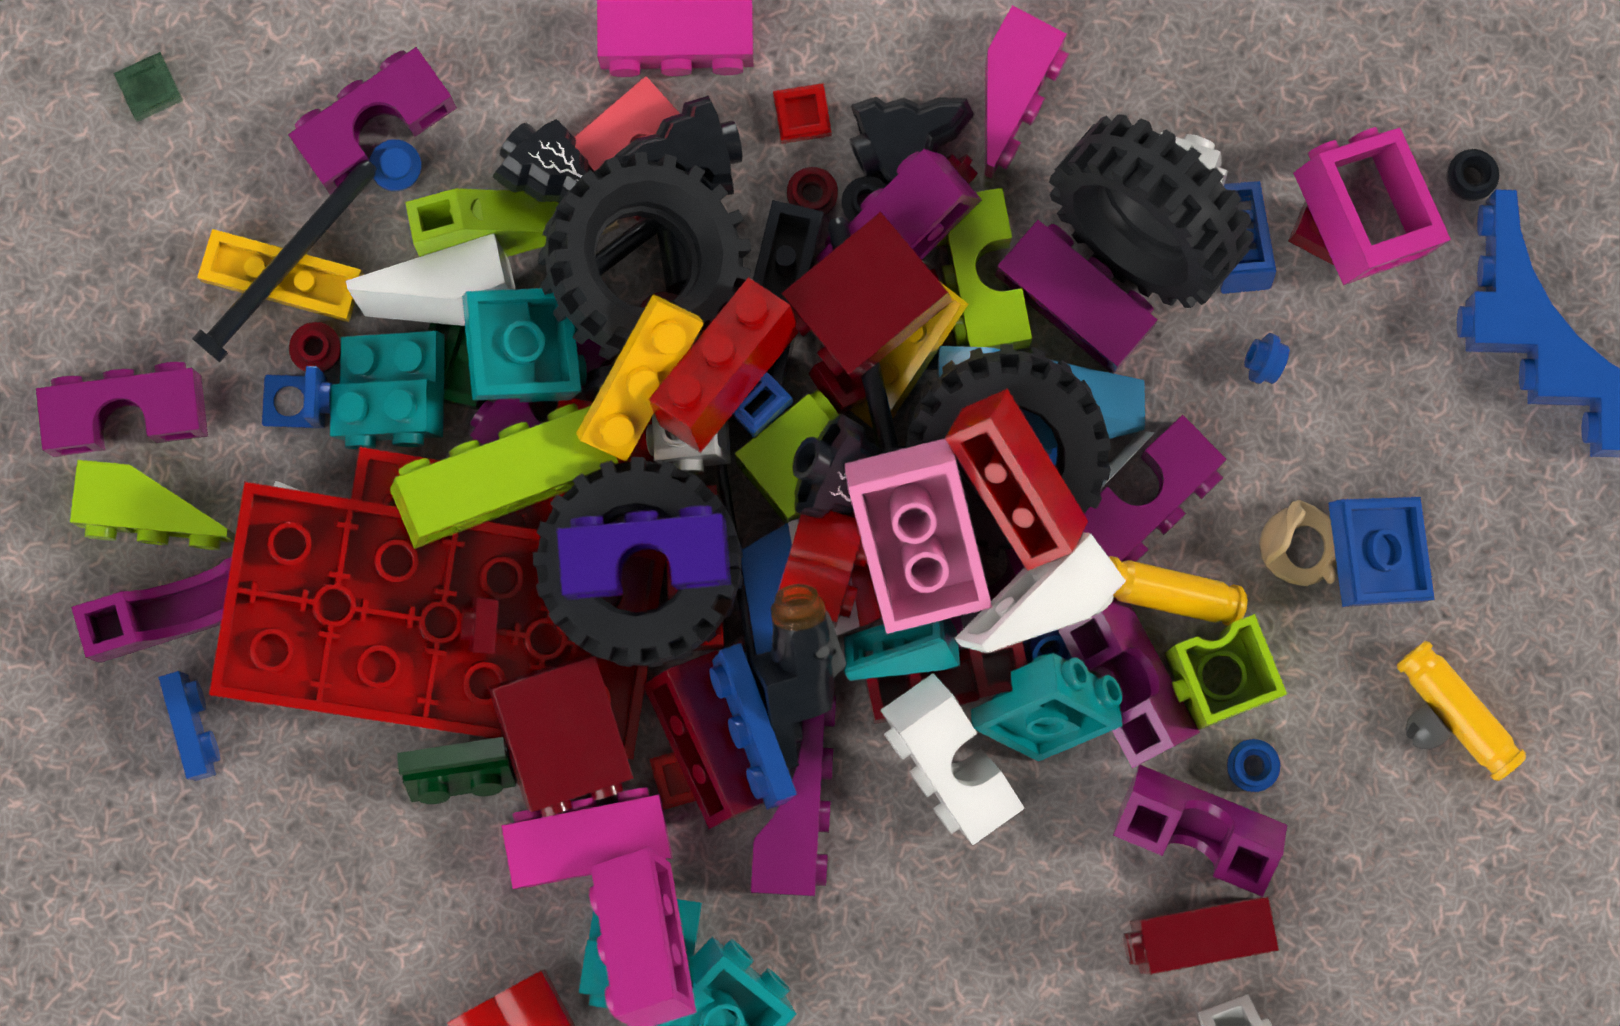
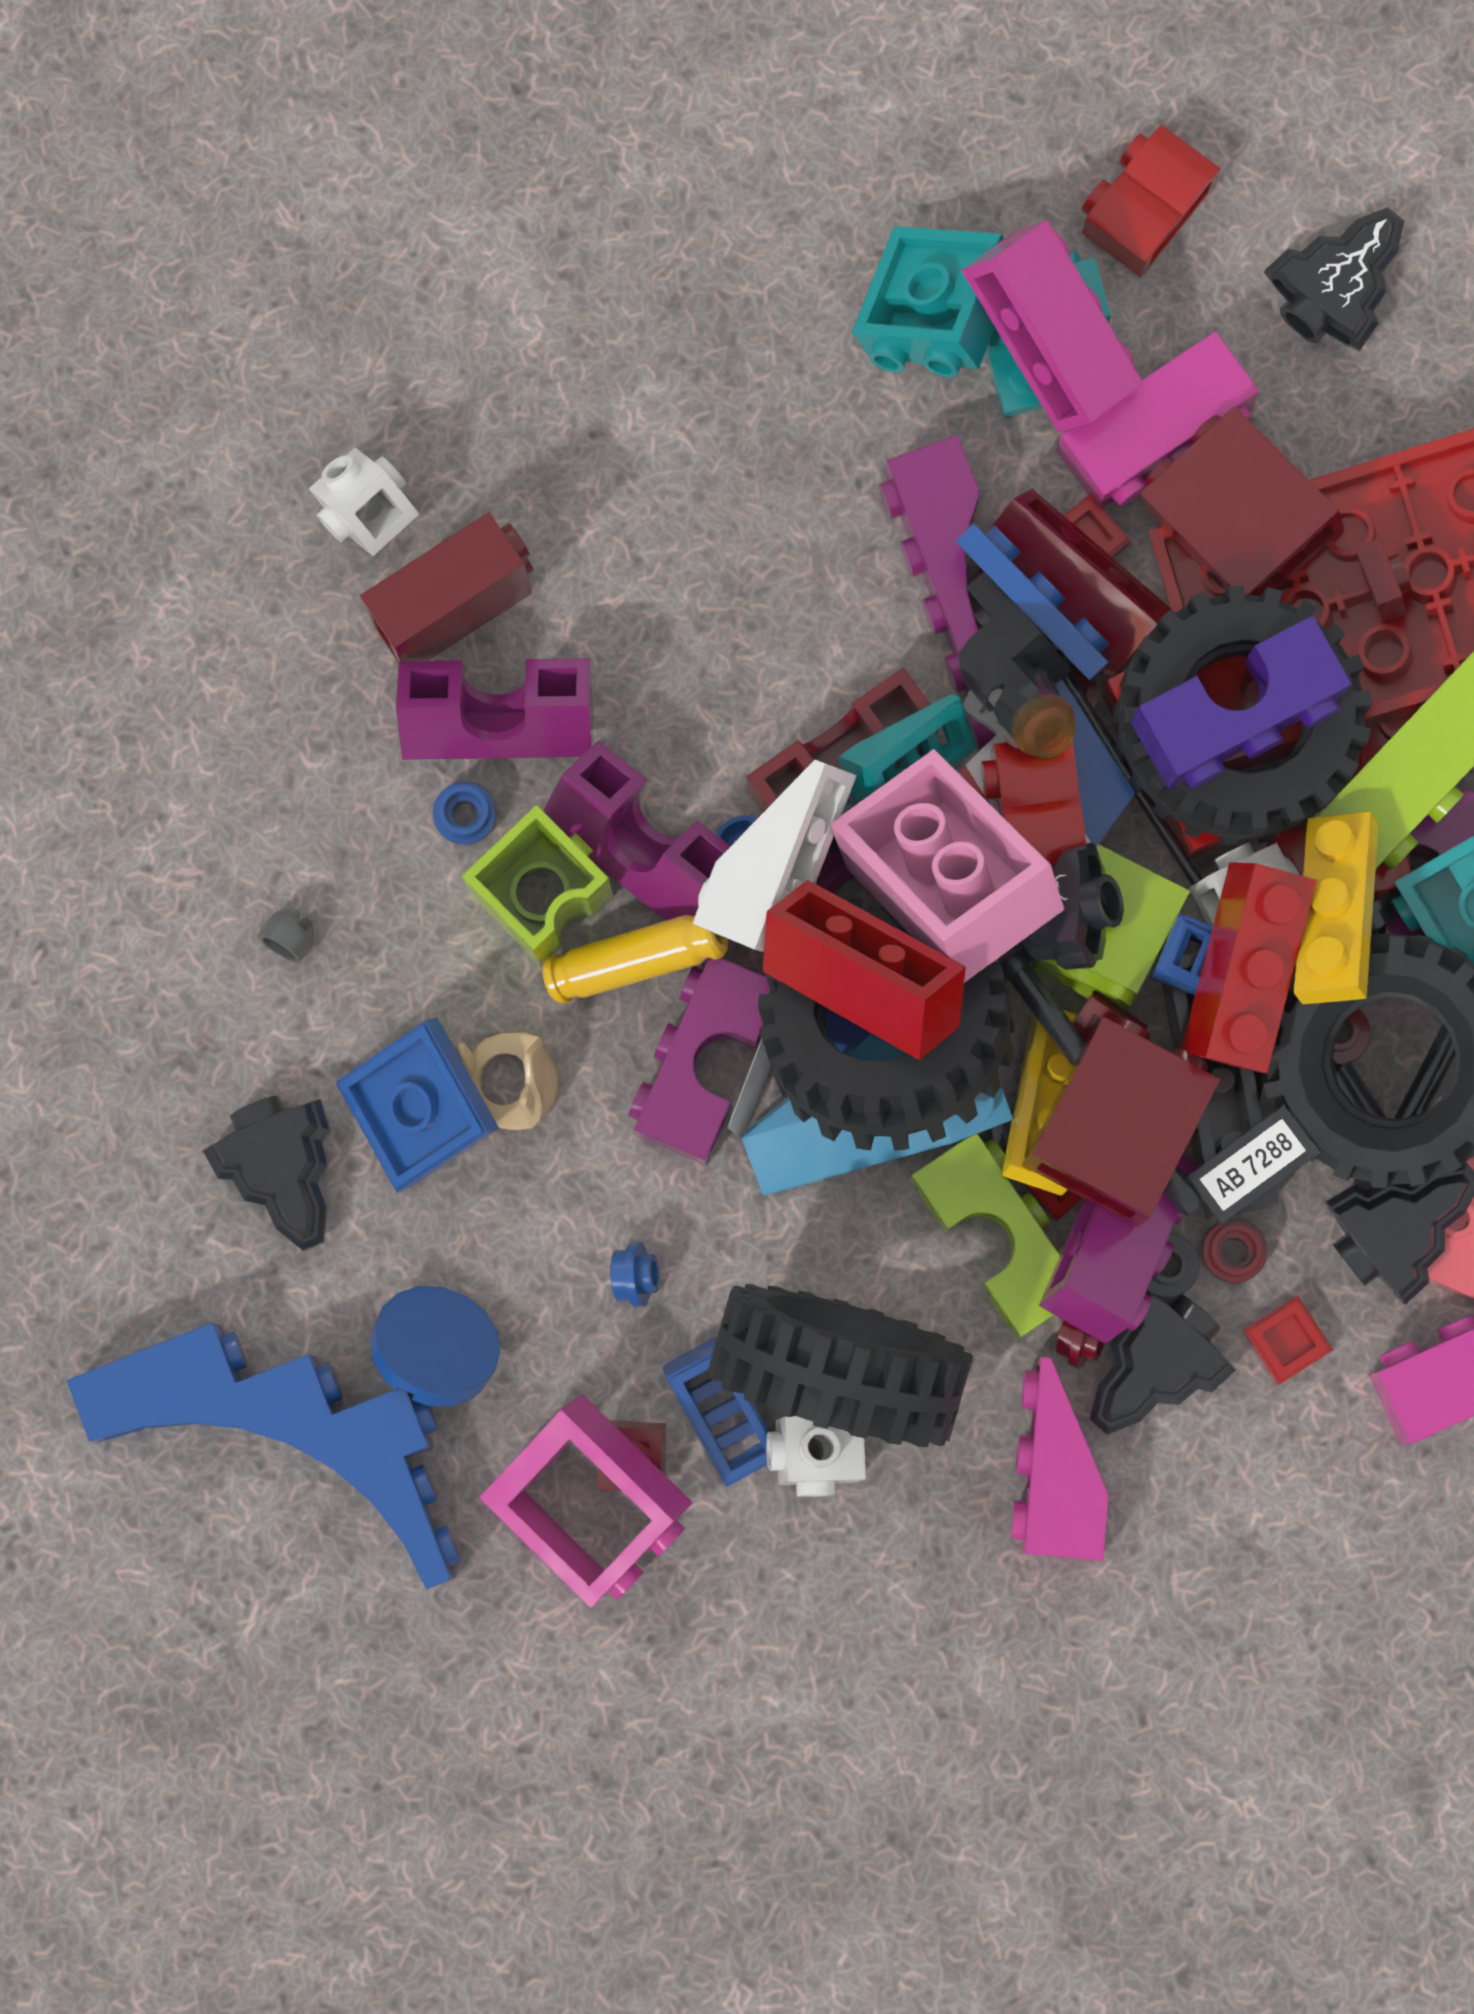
camera: 160 degrees right, 0 degrees up
(393, 896) = (1338, 280): none -> black rock
(455, 770) = (1353, 419): dark green plate -> none
(781, 229) = (1252, 1164): none -> sticker
(931, 729) = (838, 674): white arch -> none
(1051, 708) = (715, 764): teal plate -> none
(1077, 295) = (881, 1255): magenta brick -> none
(1438, 366) = (435, 1345): none -> blue tile
(1461, 711) = (257, 969): yellow axle -> none
(1473, 159) = (461, 1598): black plate -> none
(1502, 555) = (277, 1163): none -> black rock

